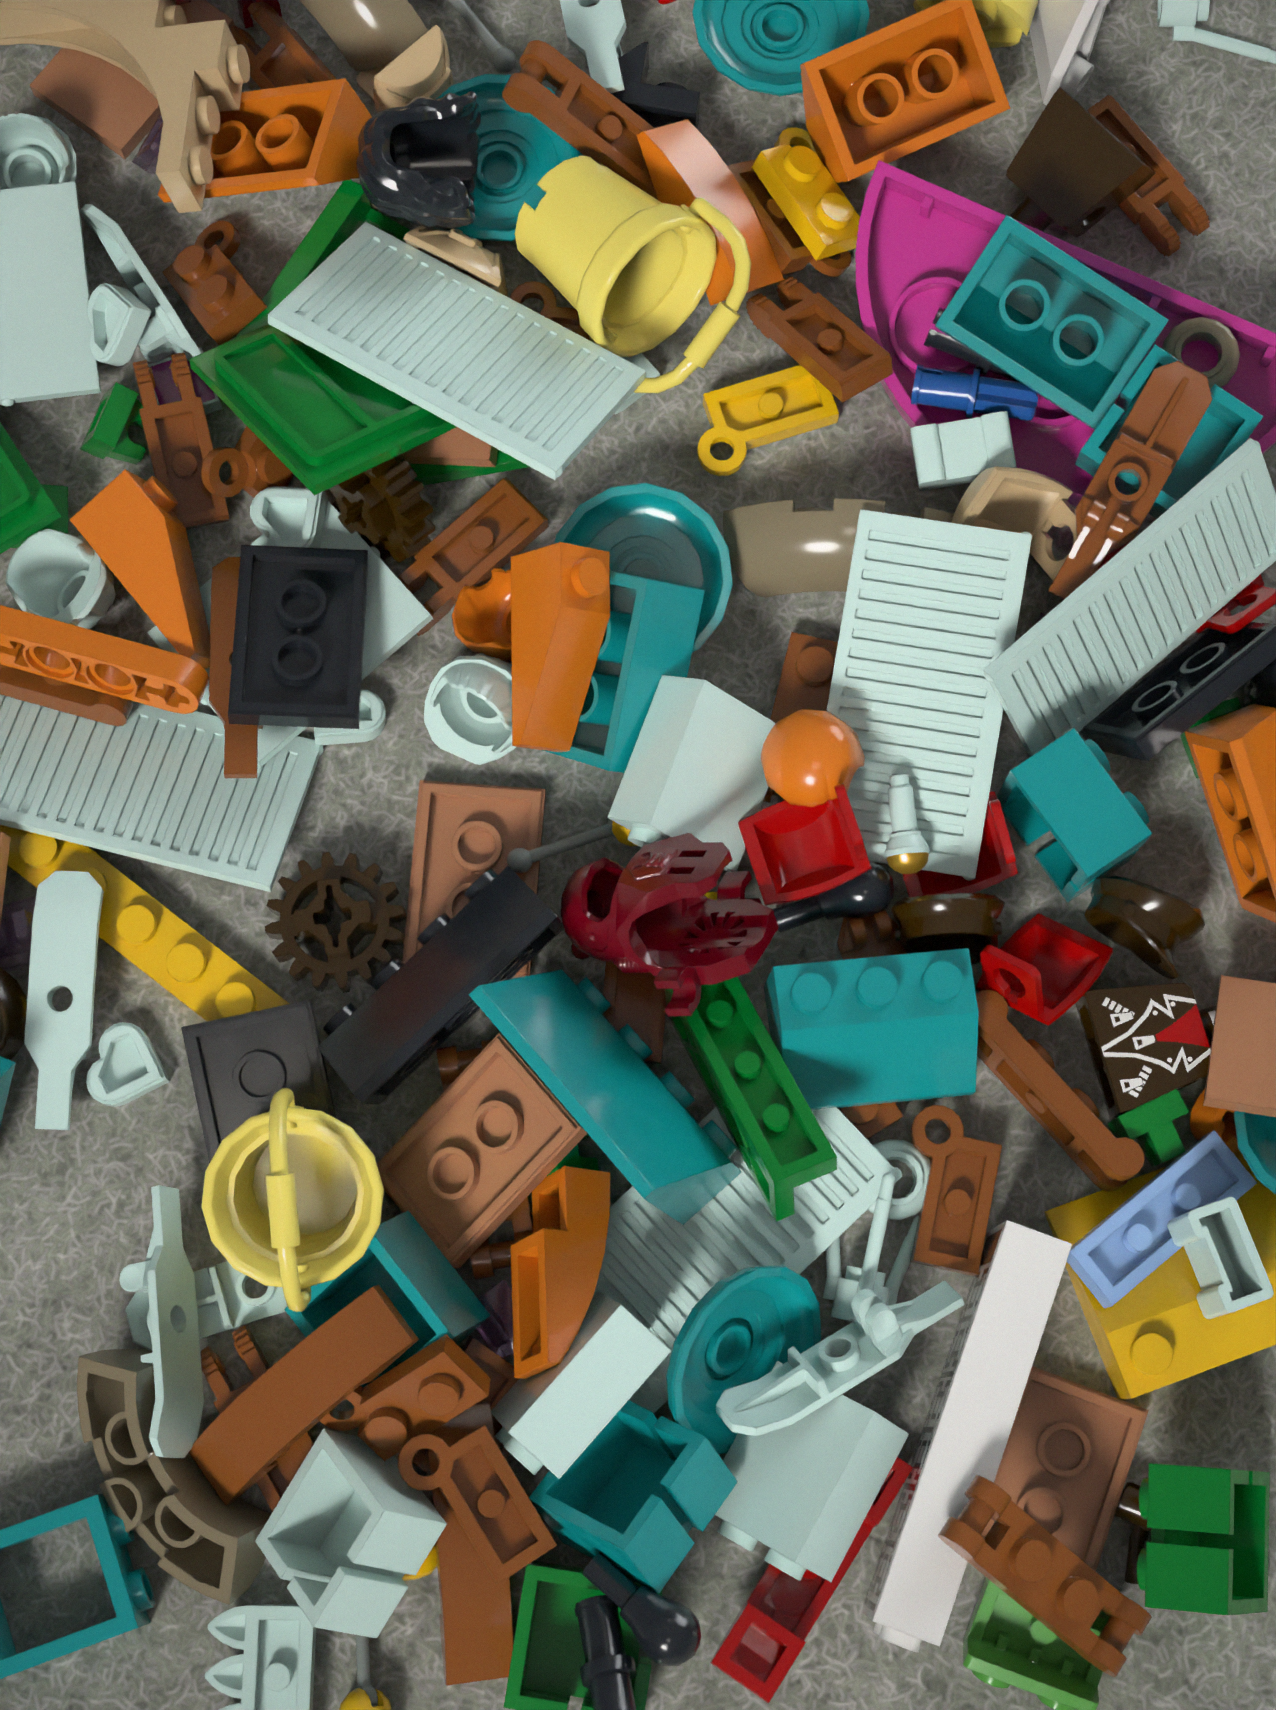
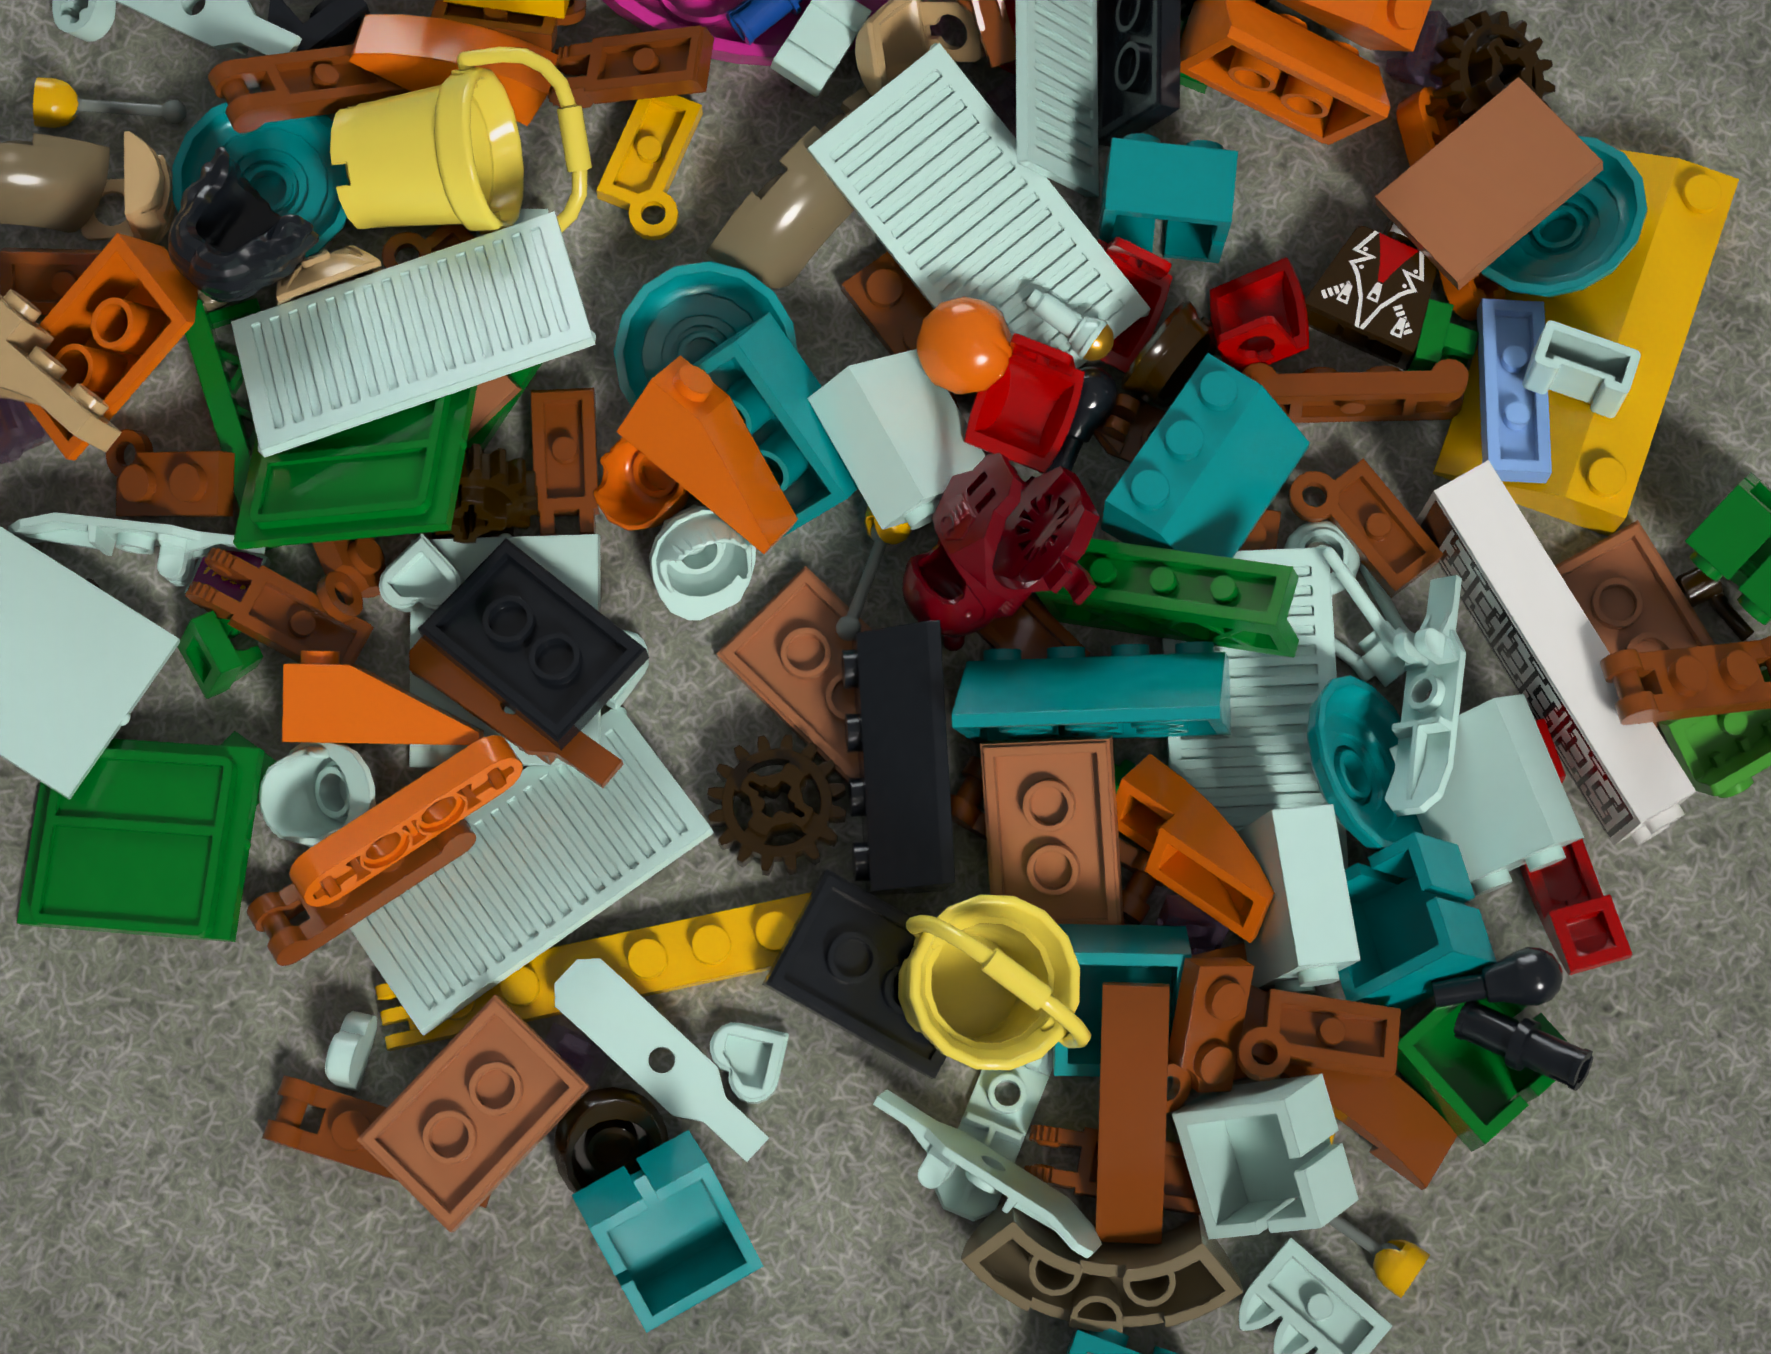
camera: 55 degrees left, 0 degrees up
(117, 323) = (139, 579): light aqua tile -> none
(1143, 920) = (1285, 218): dark brown piece -> none

